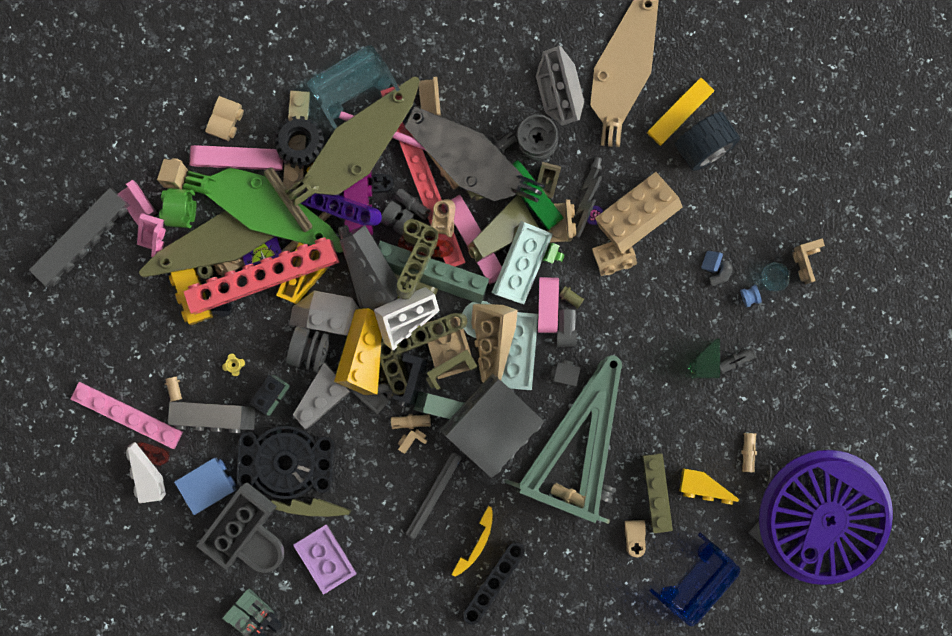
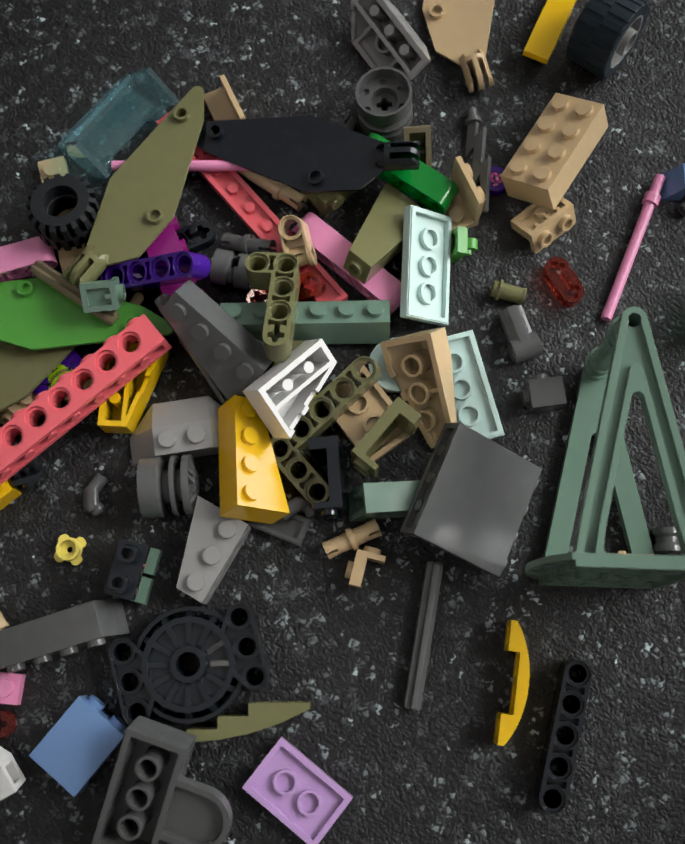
camera: 20 degrees left, 10 degrees down
(256, 336) = (91, 495): none -> dark grey arm
(306, 214) = (102, 295): none -> sand green bracket
(548, 305) = (482, 312): bright pink beam -> none
(615, 301) = (568, 279): none -> clear red beam
(691, 268) = (650, 202): none -> bright pink bar

